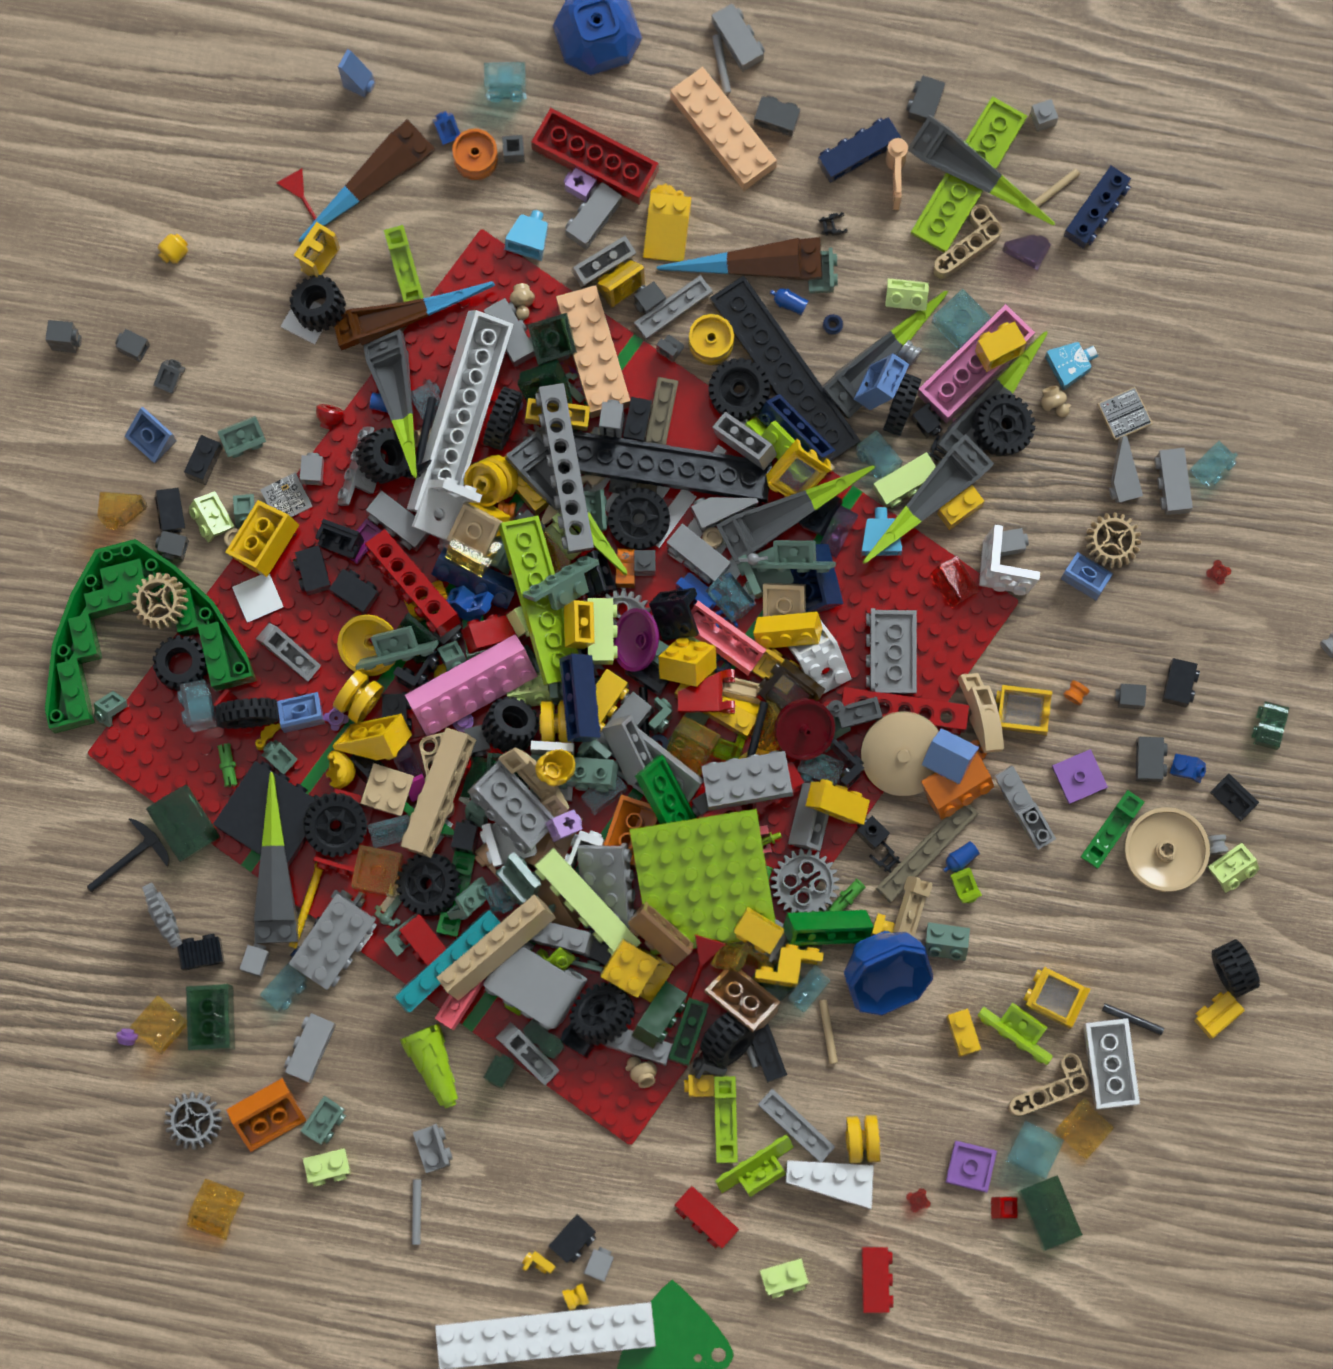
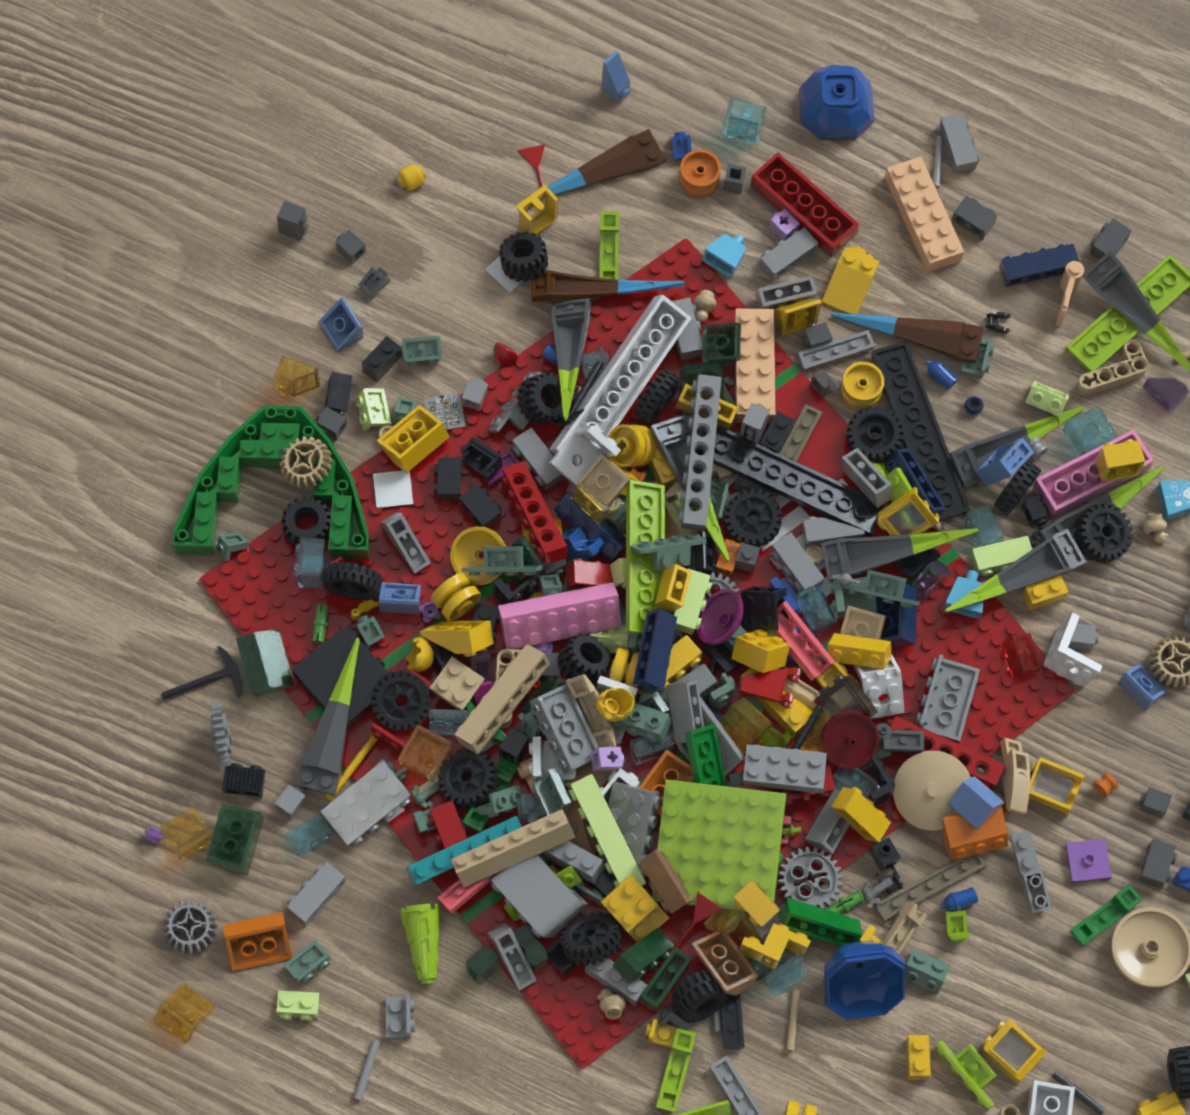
camera: 10 degrees right, 10 degrees down
(869, 880) = (870, 894): none -> light grey piece

